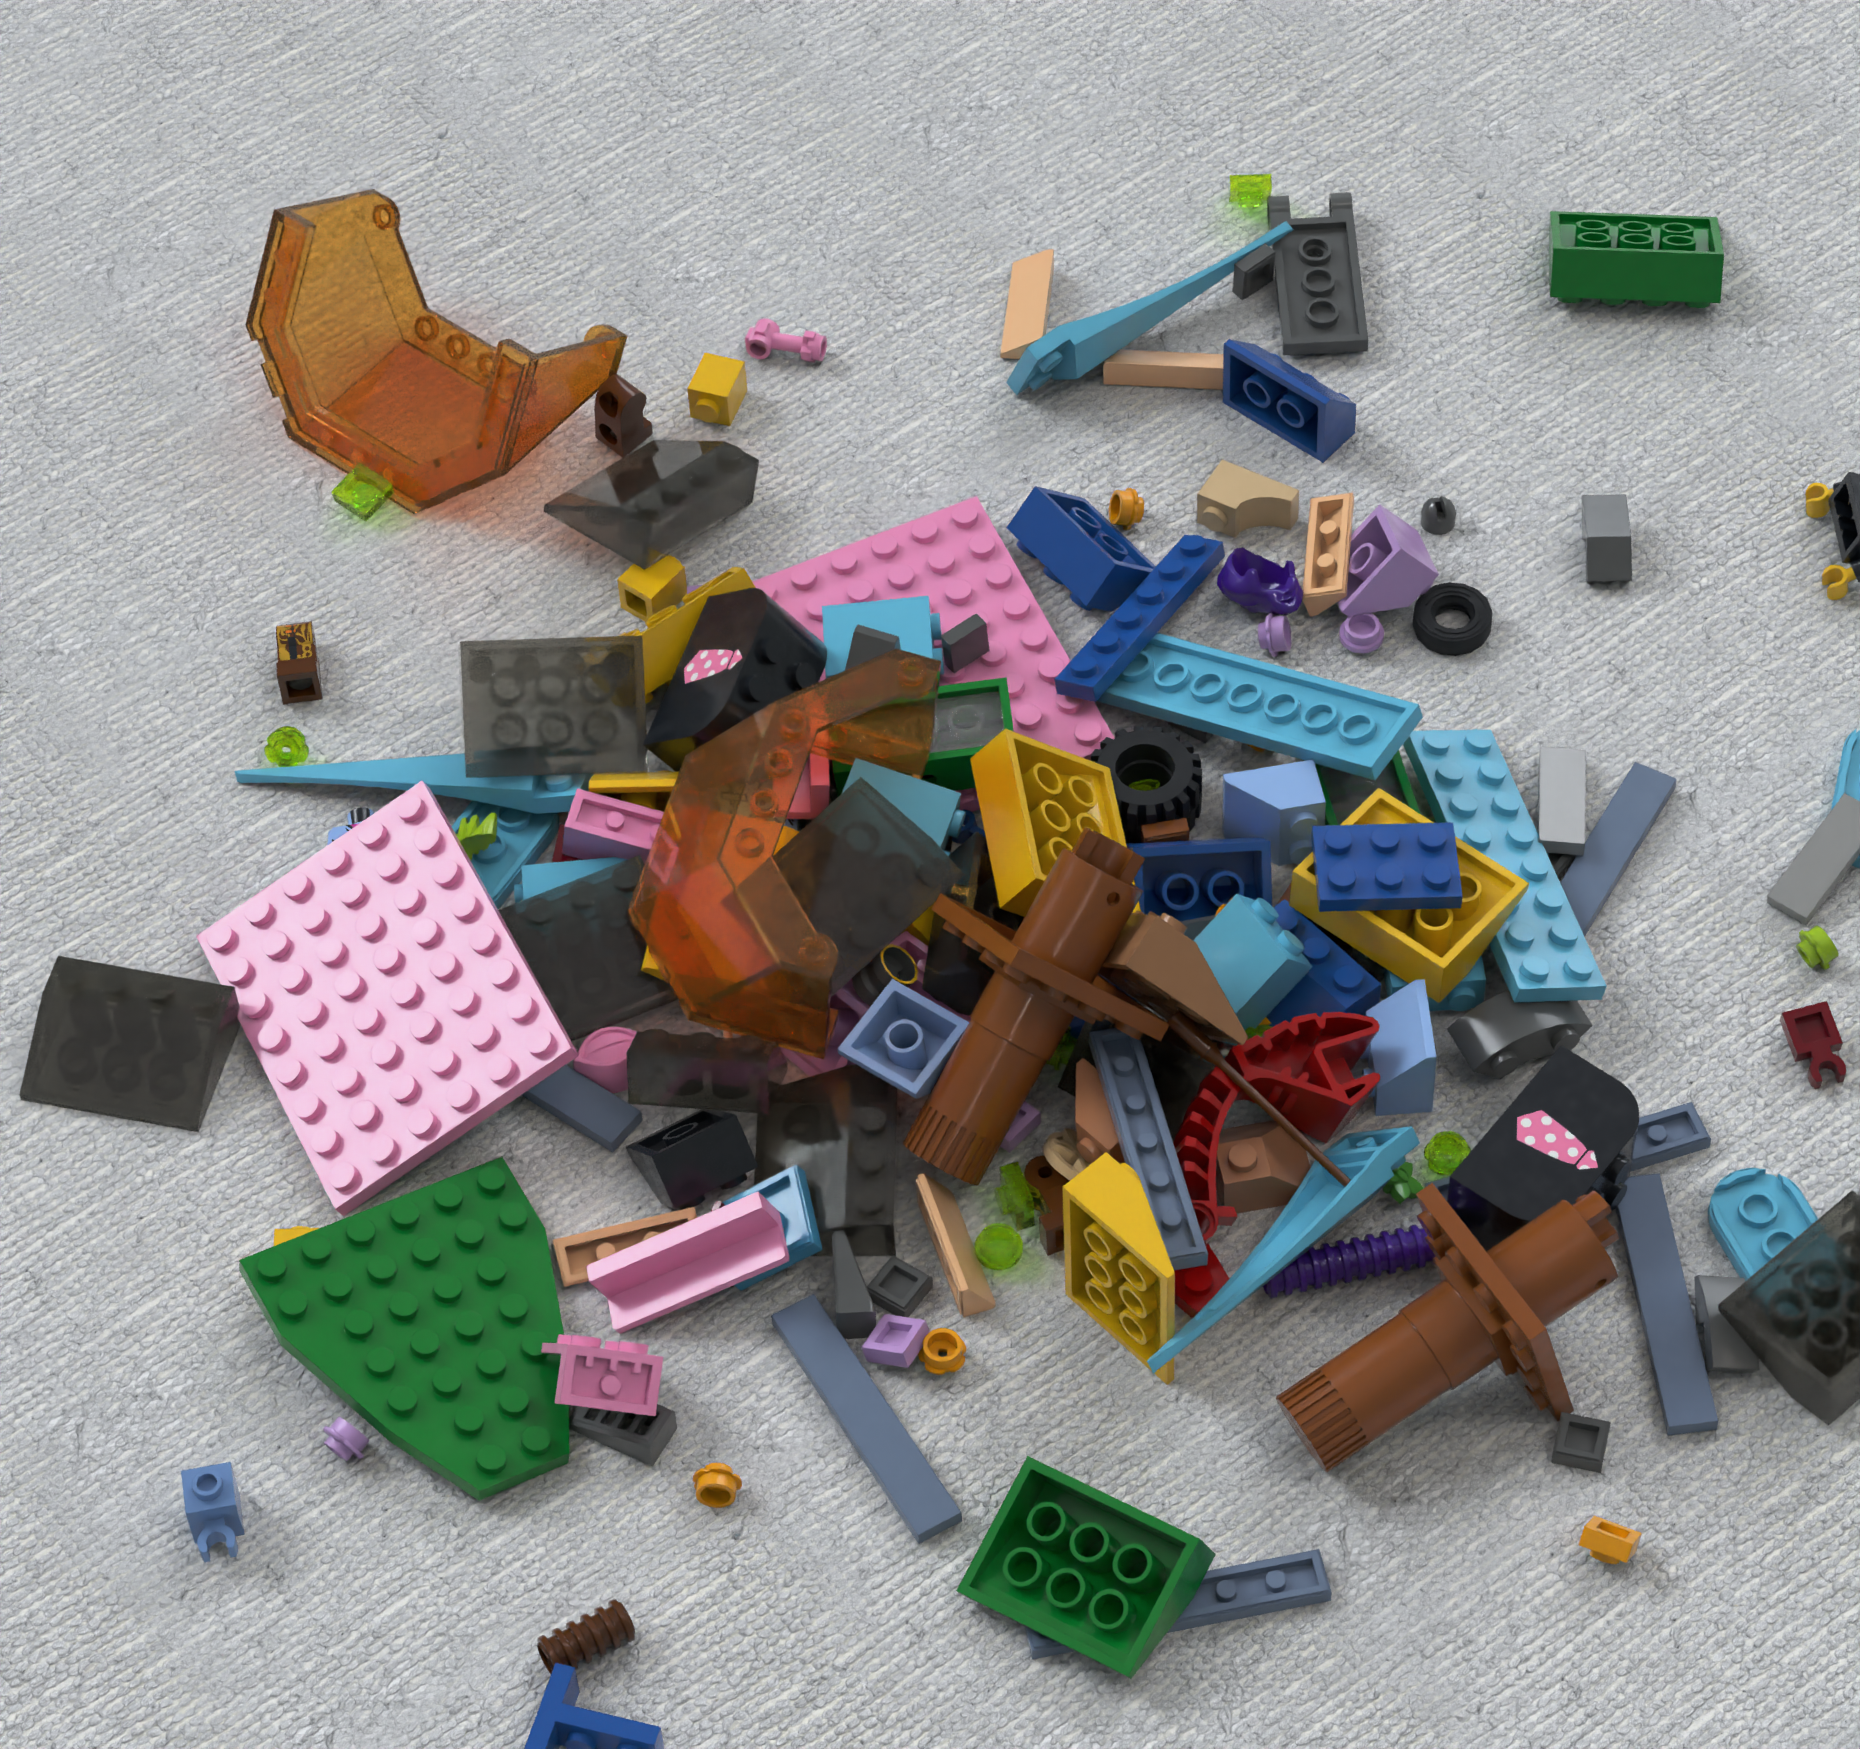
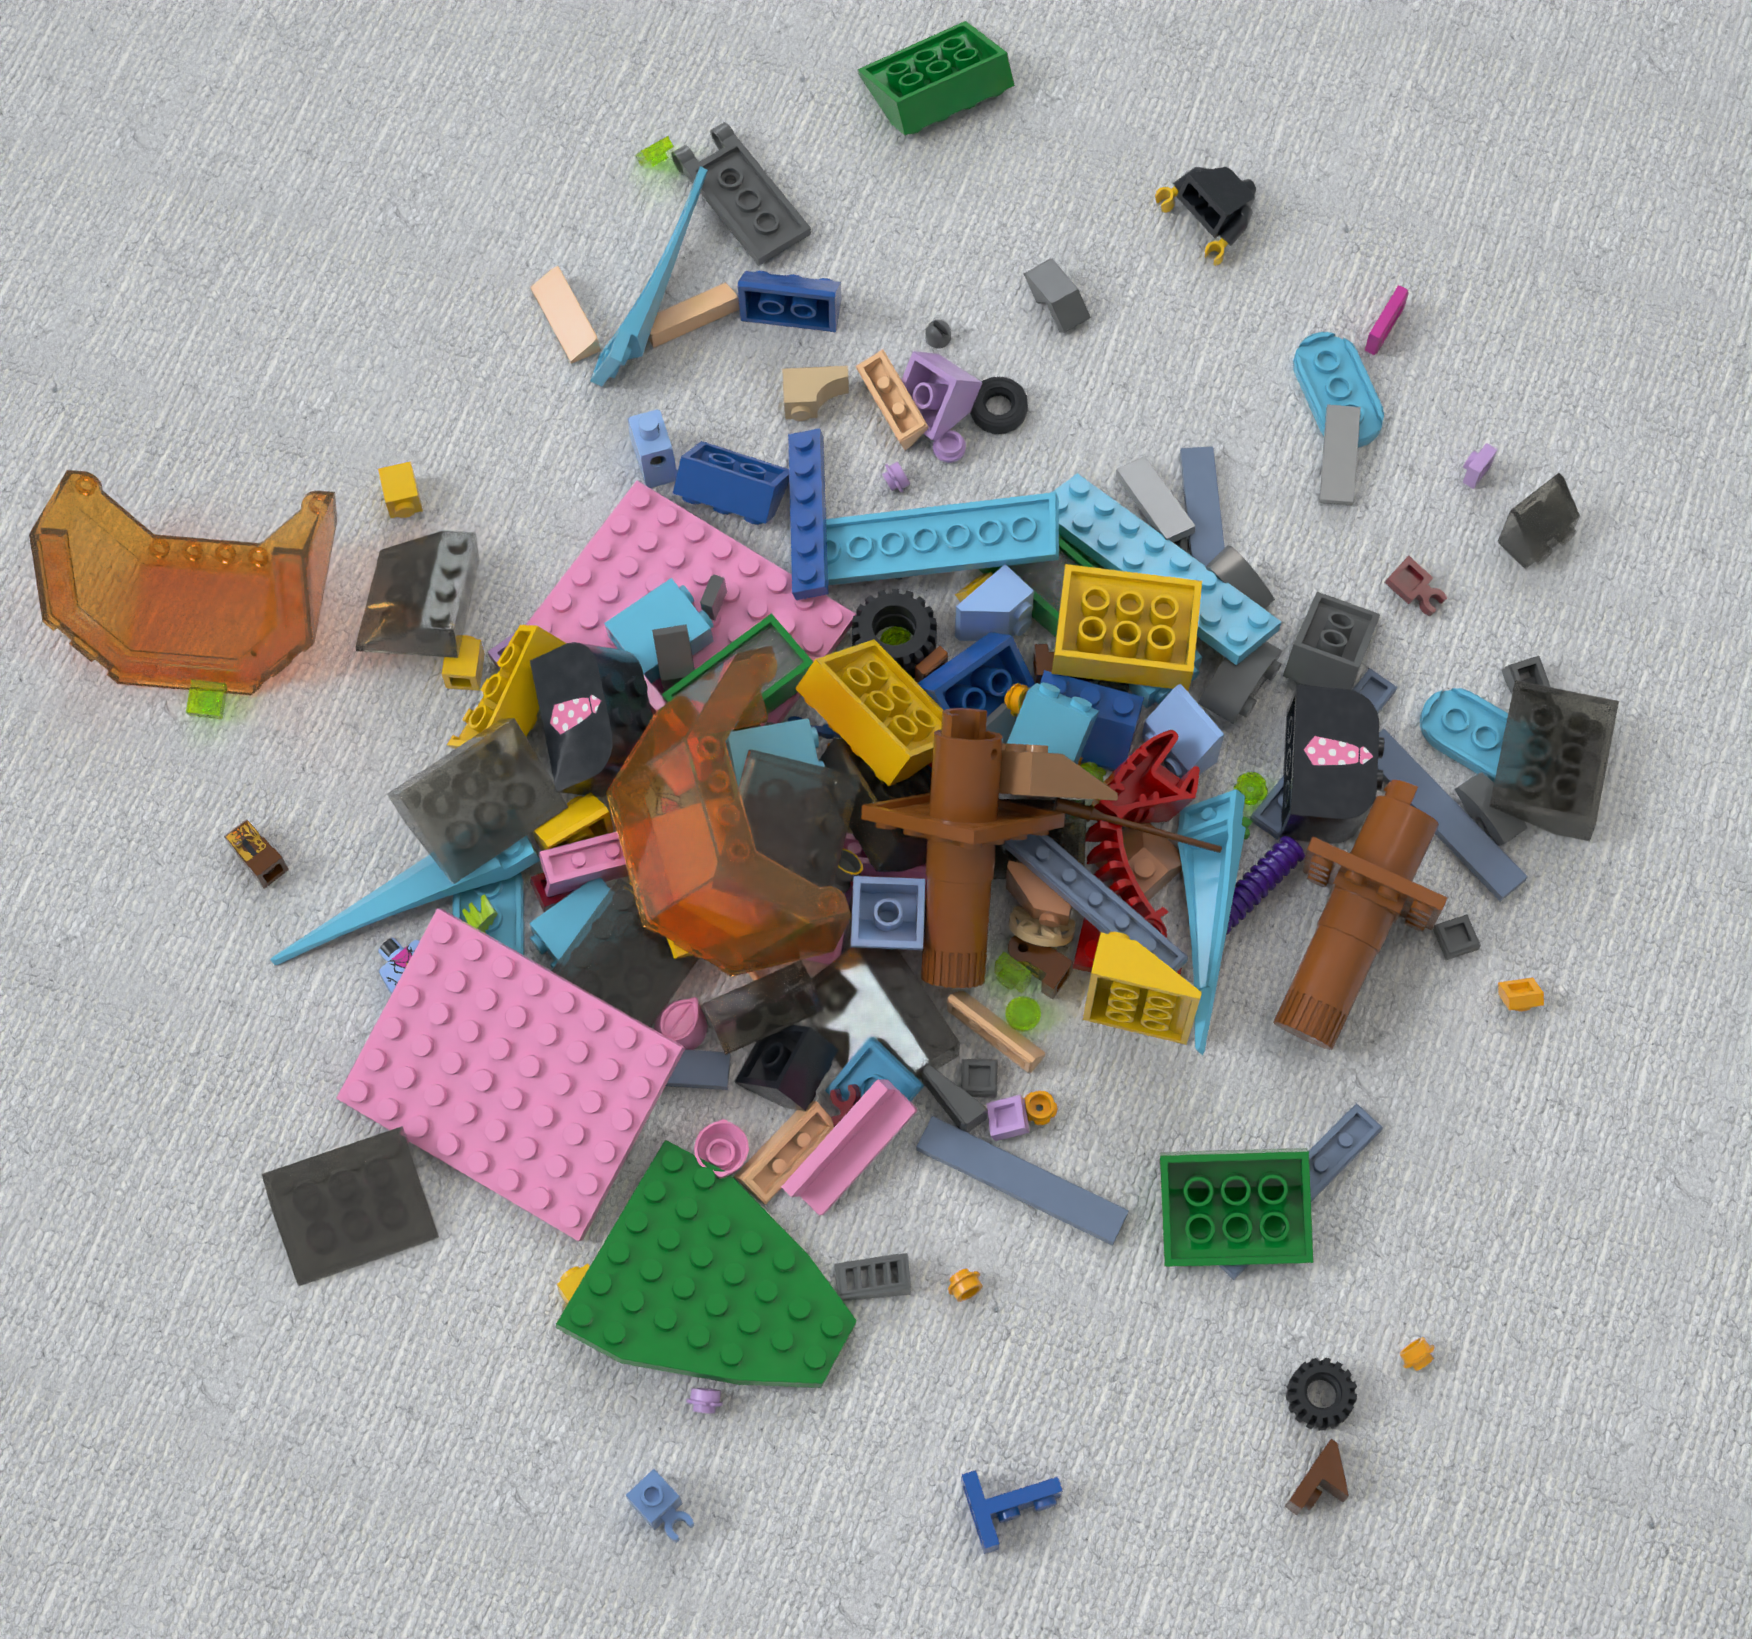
camera: 35 degrees left, 15 degrees up
(290, 738) = (296, 922): clear neon green plate -> none
(558, 1197) = (722, 1146): none -> bright pink hat
(587, 1637) = (960, 1441): reddish brown piece -> none
(609, 1378) = (853, 1256): bright pink bracket -> none
(620, 409) = (353, 544): reddish brown leg -> none
(767, 336) = (403, 434): bright pink bar -> none
(1019, 454) = (652, 440): none -> light blue torso
(1126, 508) = (736, 435): light orange plate -> none
(1253, 272) = (700, 214): dark grey tile -> none
(1260, 583) = (866, 446): dark purple hair -> none
(1386, 867) = (1112, 620): blue plate -> none
(1599, 921) = (1235, 570): none -> dark grey slope
(1662, 1049) = (1331, 643): none -> dark grey slope
(1816, 947) = (1373, 519): lime plate -> none

